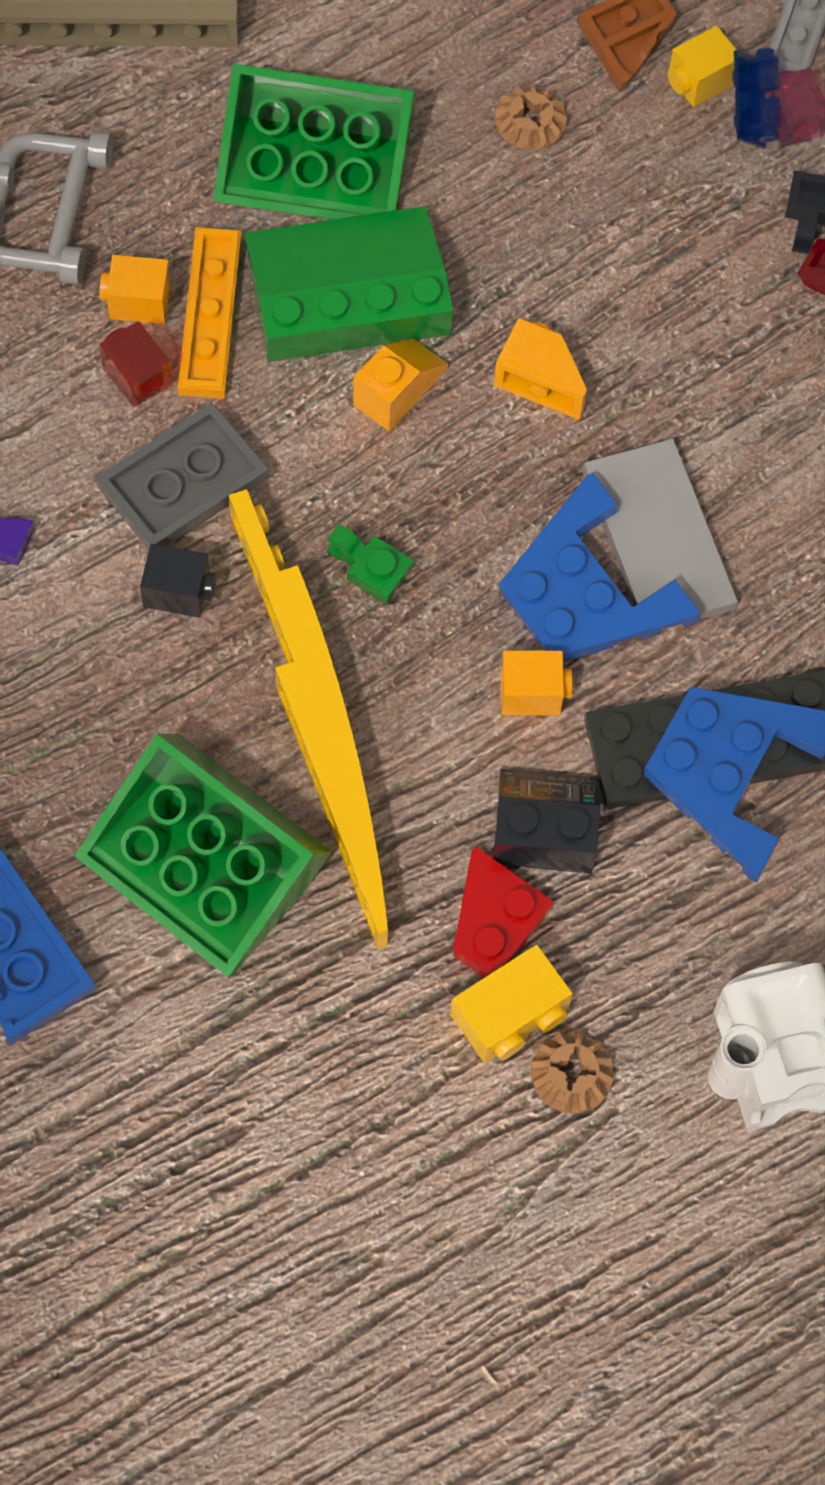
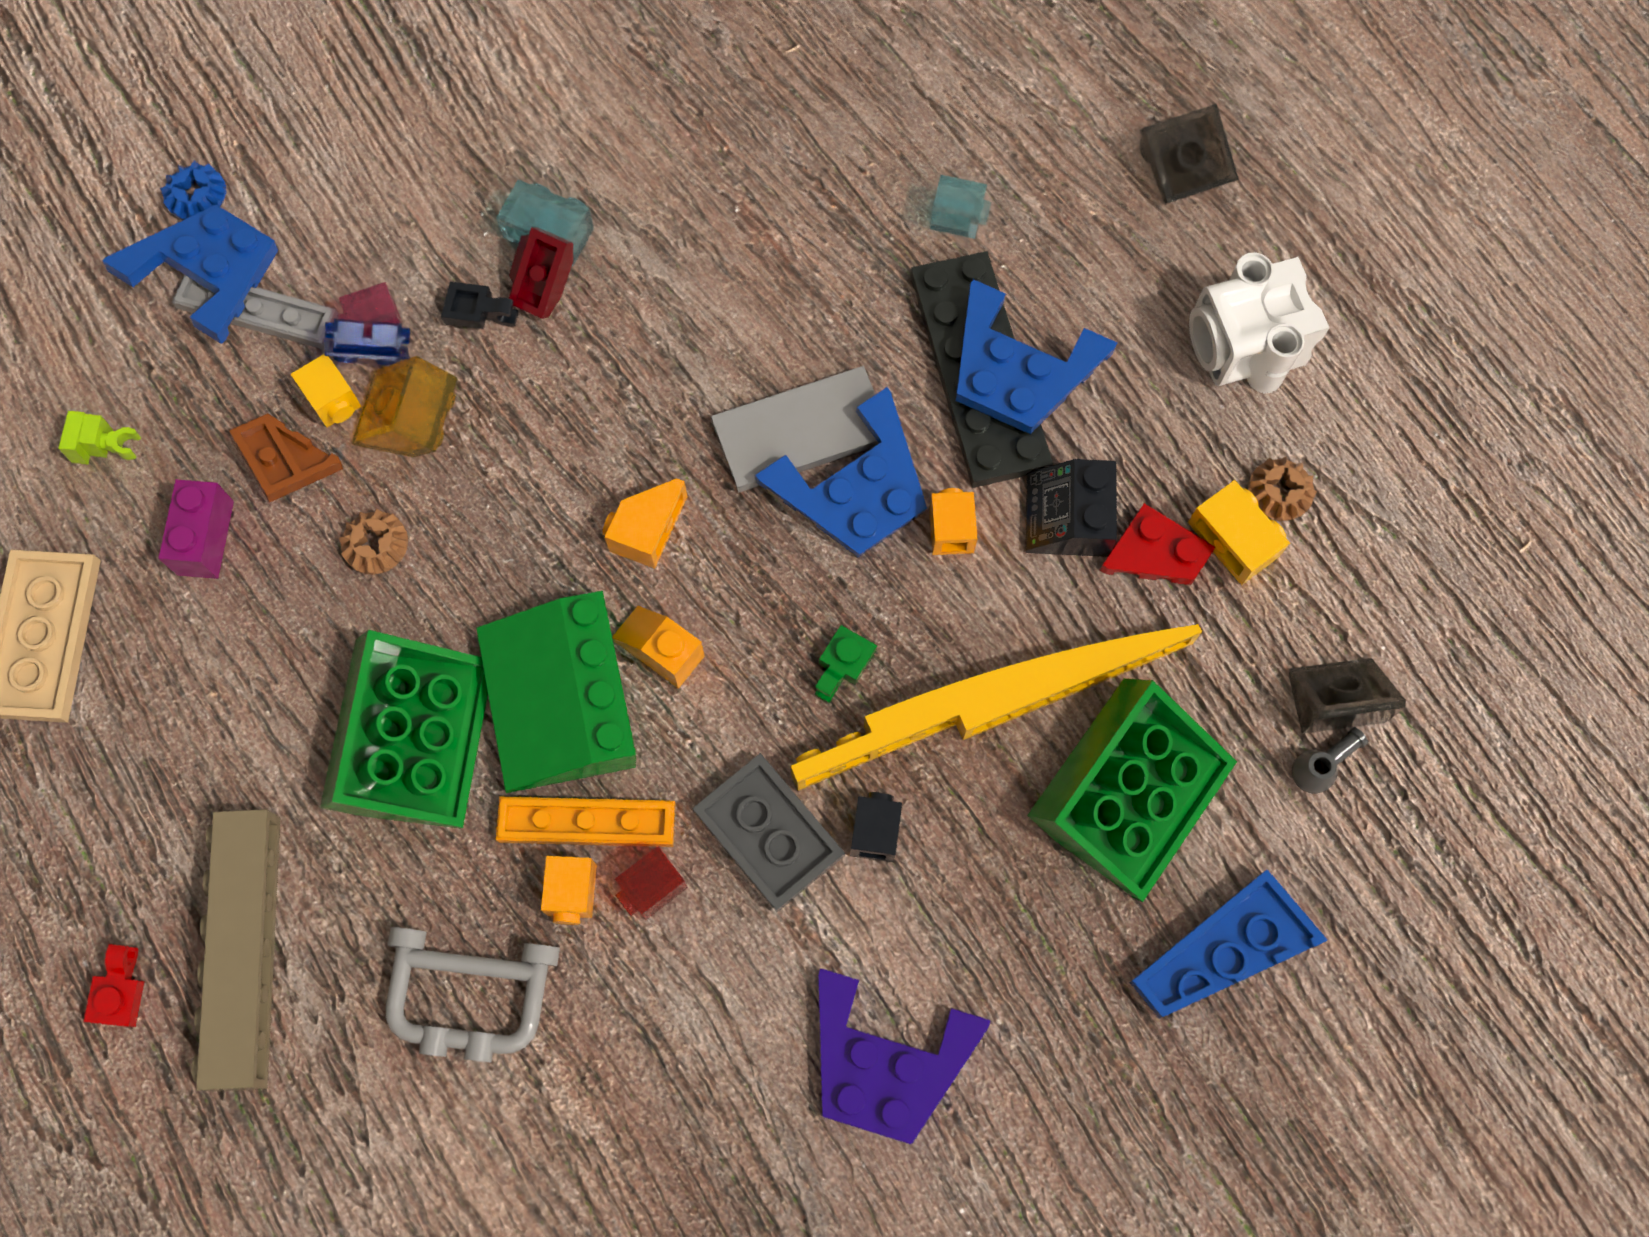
camera: 90 degrees left, 5 degrees up
(220, 1079) = (1303, 766): none -> dark grey bar
(301, 1101) = (1343, 695): none -> clear smoke slope
(680, 142) = (406, 408): none -> clear yellow slope

